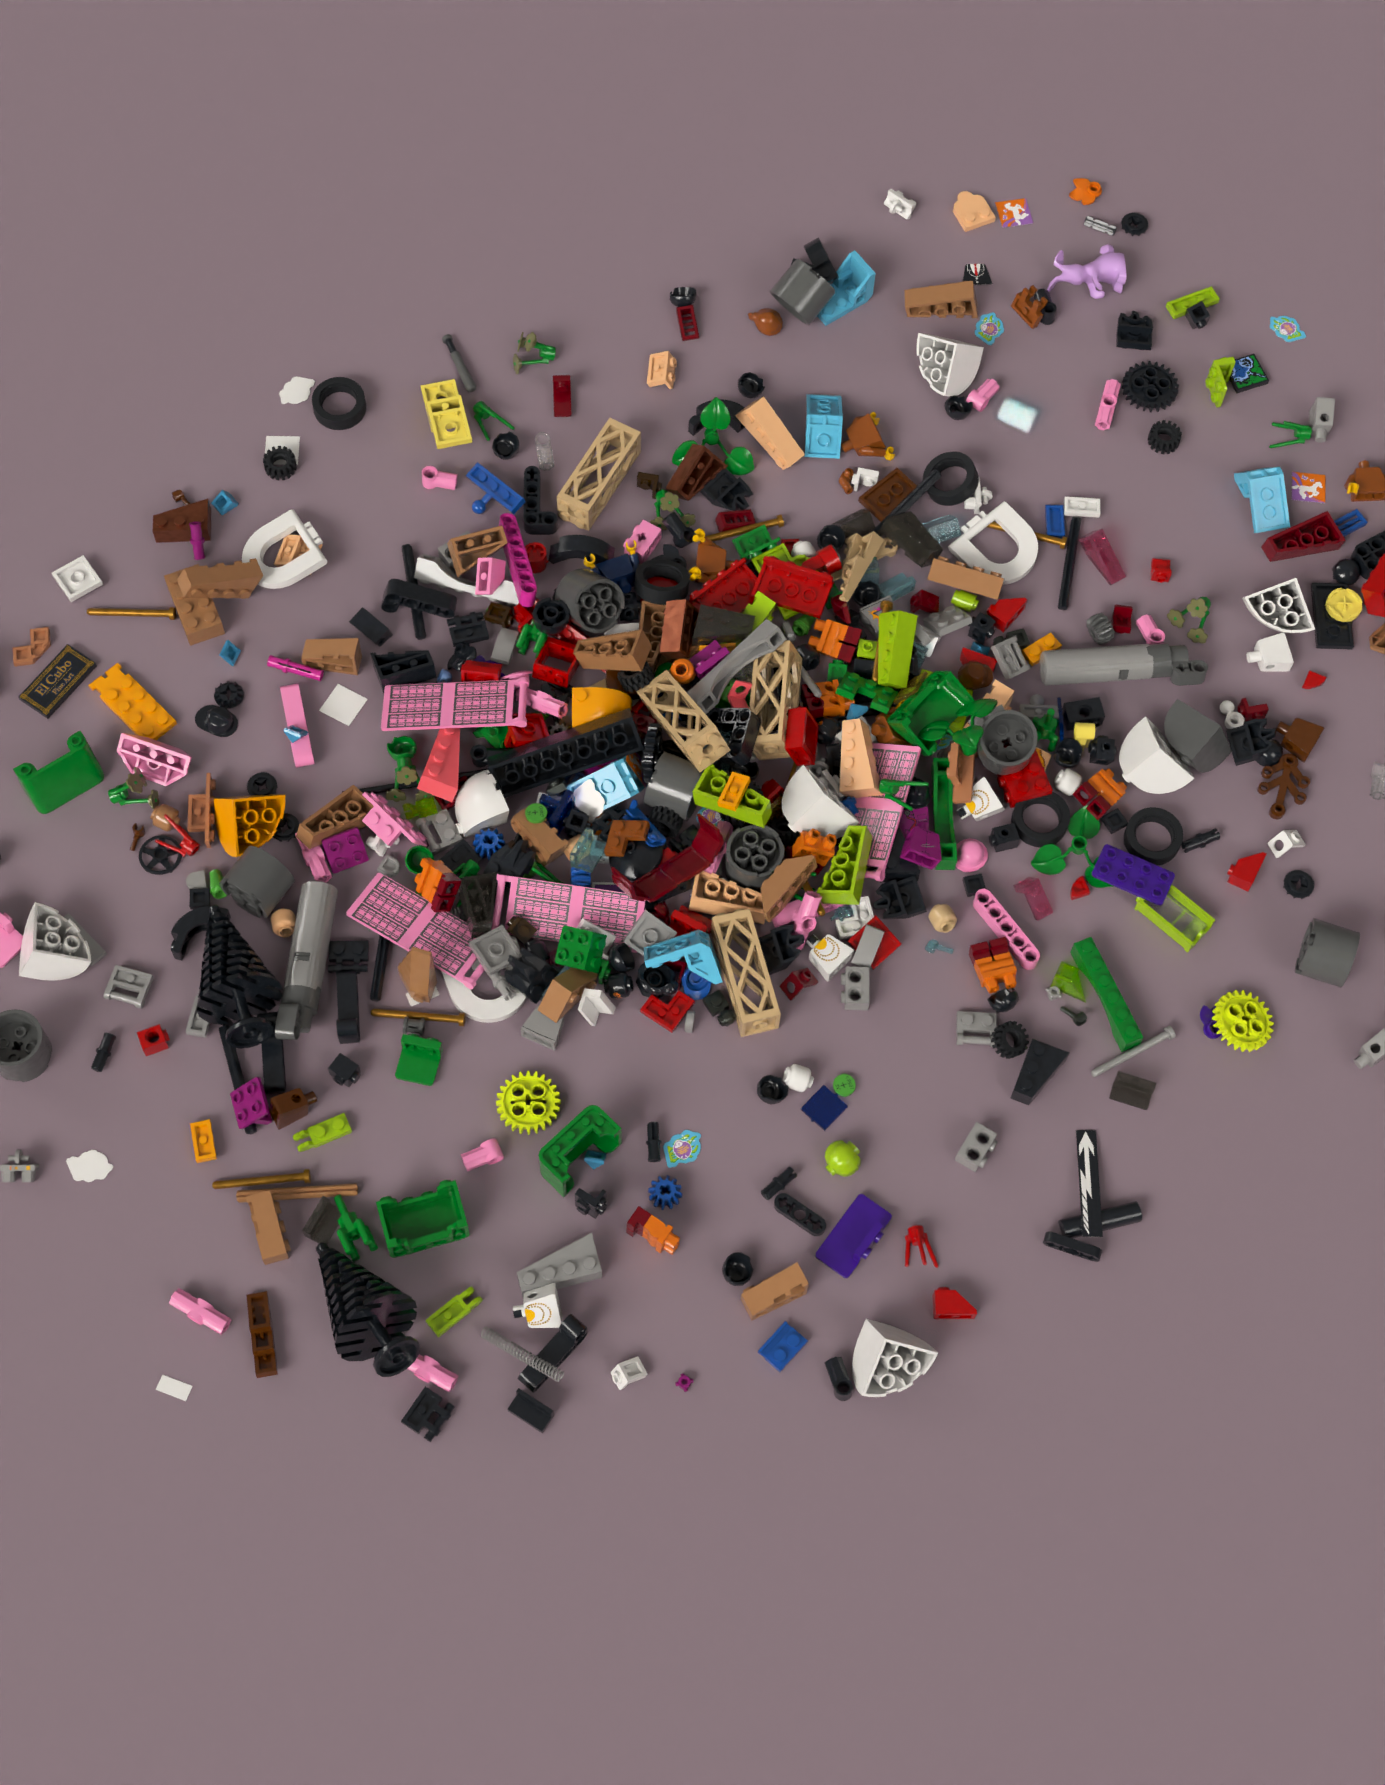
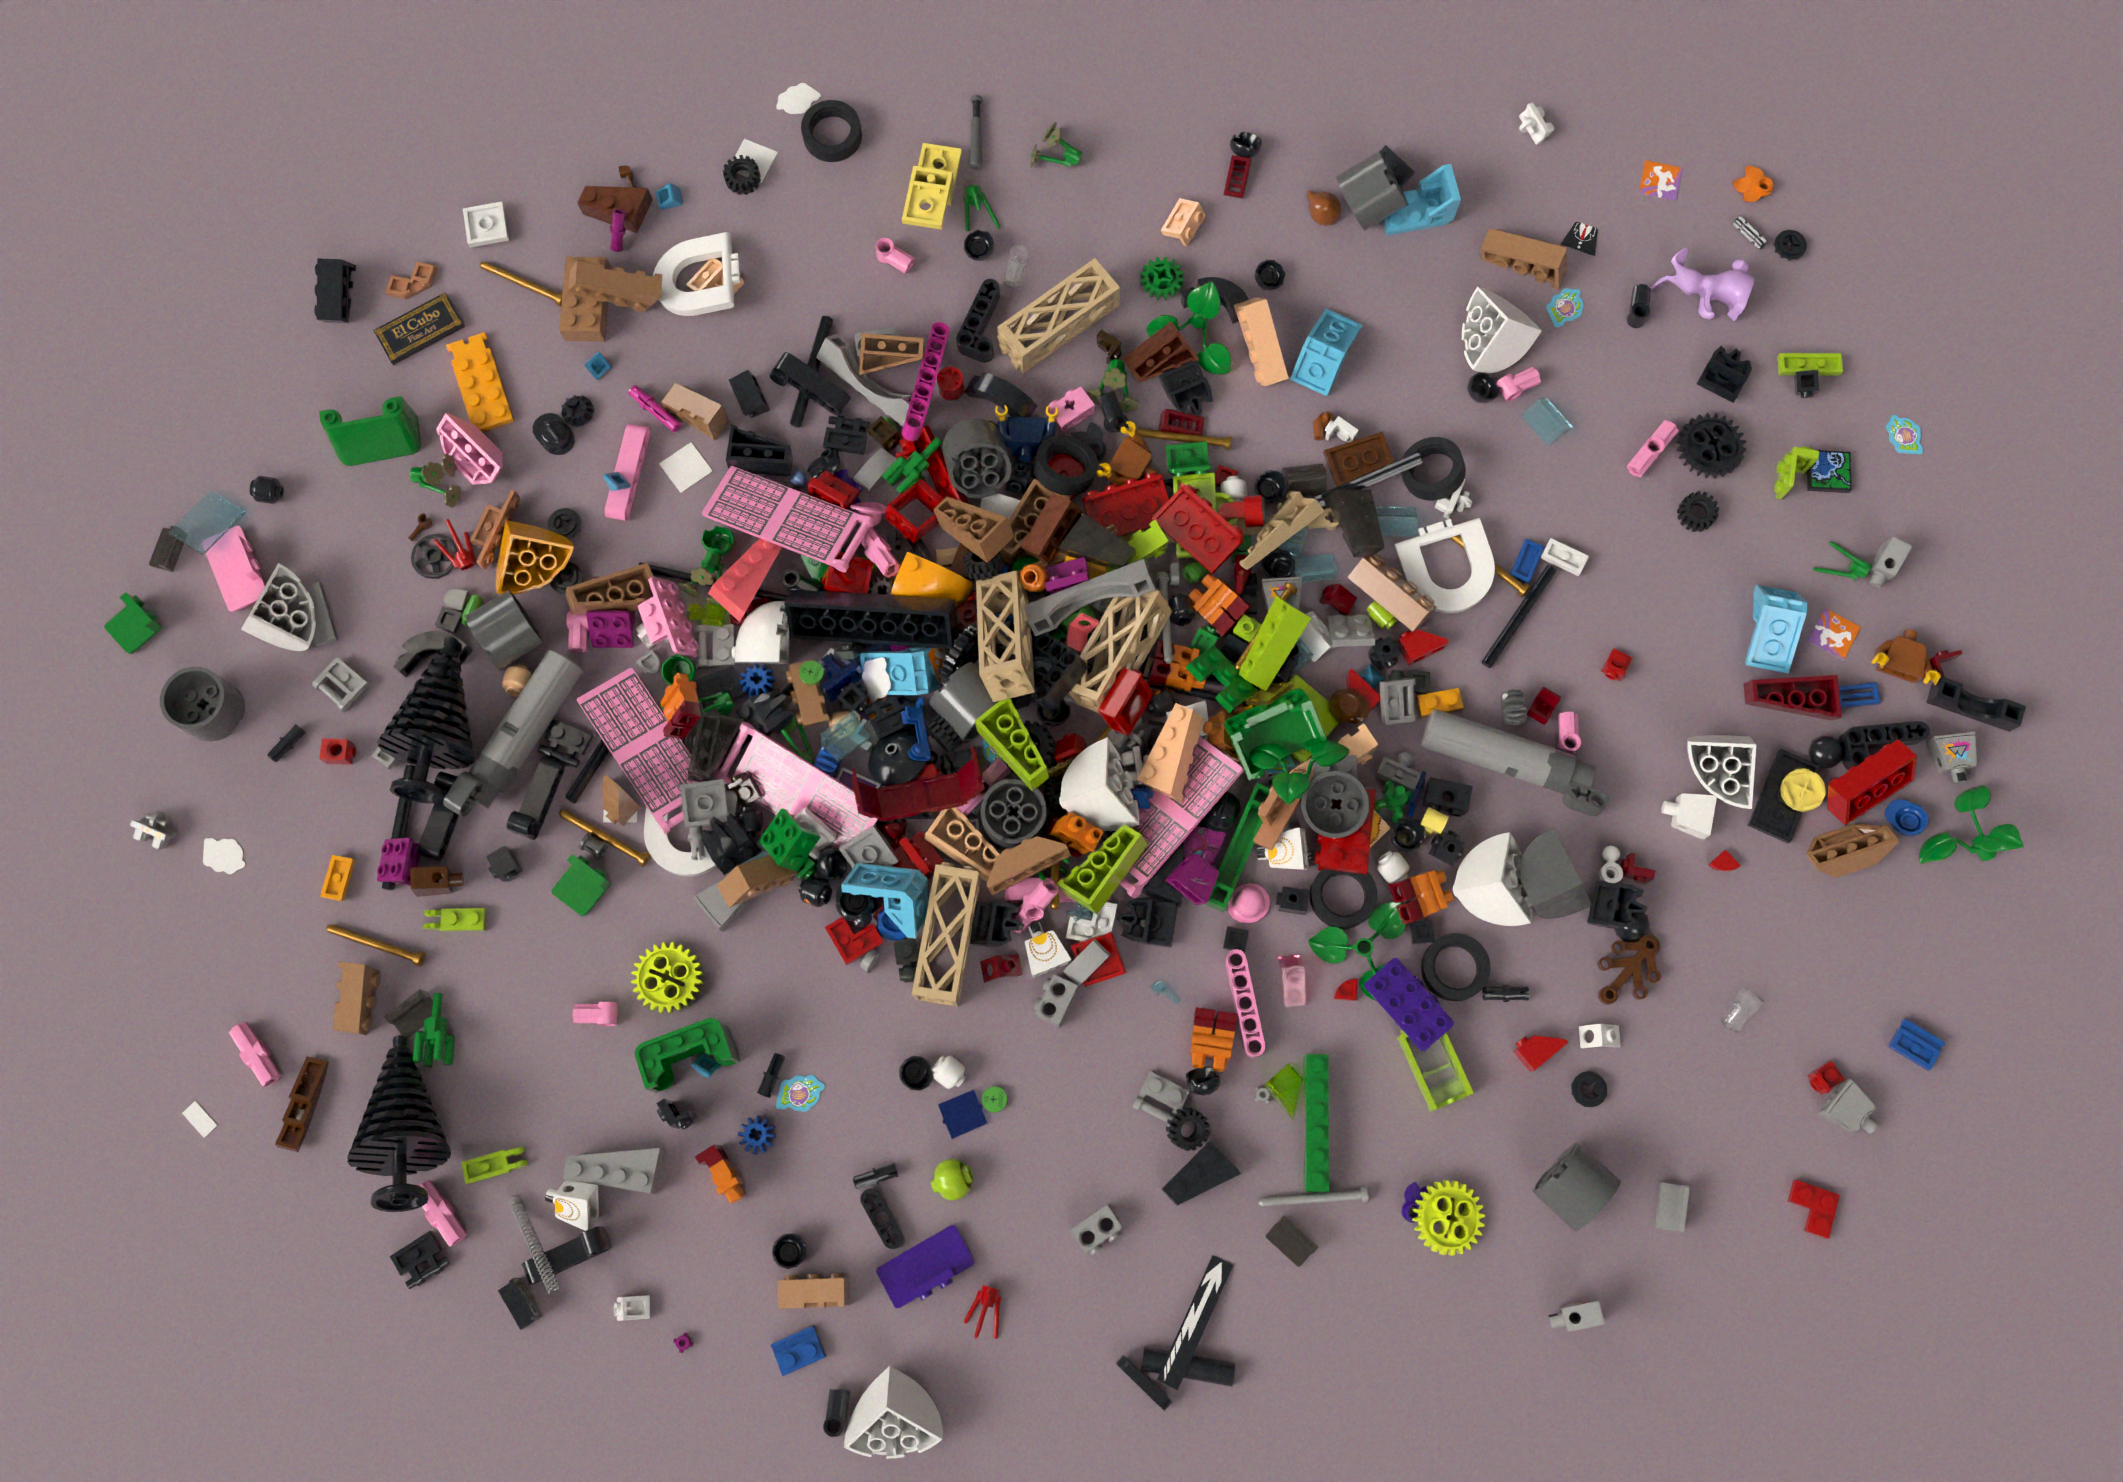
camera: 30 degrees right, 10 degrees up
(159, 820) = (457, 517): medium nougat head -> none
(303, 1192) = (402, 972): medium nougat axle -> none
(423, 1220) = (502, 1056): green windscreen -> none
(489, 575) = (887, 388): bright pink slope -> none
(494, 489) = (944, 291): blue plate -> none
(551, 616) = (926, 460): black cylinder -> none
(562, 395) = (1064, 212): dark red bracket -> none
(593, 1003) = (773, 904): white panel -> none
(622, 832) = (888, 730): dark orange plate -> none
(666, 418) = (1161, 277): none -> green gear
(733, 791) = (1013, 741): light orange plate -> none
(820, 260) = (1410, 154): black arch -> none
(856, 711) = (1201, 694): dark azure slope -> none
(866, 438) = (1364, 384): dark orange torso -> none
(891, 787) = (1191, 800): green plant -> none
(921, 635) = (1311, 632): light grey beam -> none
(942, 918) = (1183, 962): tan head -> none
(951, 1305) = (987, 1388): red slope -> none
(972, 211) = (1613, 161): light nougat plate -> none
(1026, 309) = (1617, 303): dark orange plate -> none
(1078, 1019) = (1274, 1135): pearl dark grey hand -> none
(1102, 556) = (1558, 623): clear pink slope -> none
(1197, 608) = (1633, 729): olive plant -> none
(1299, 737) = (1674, 923): reddish brown torso -> none

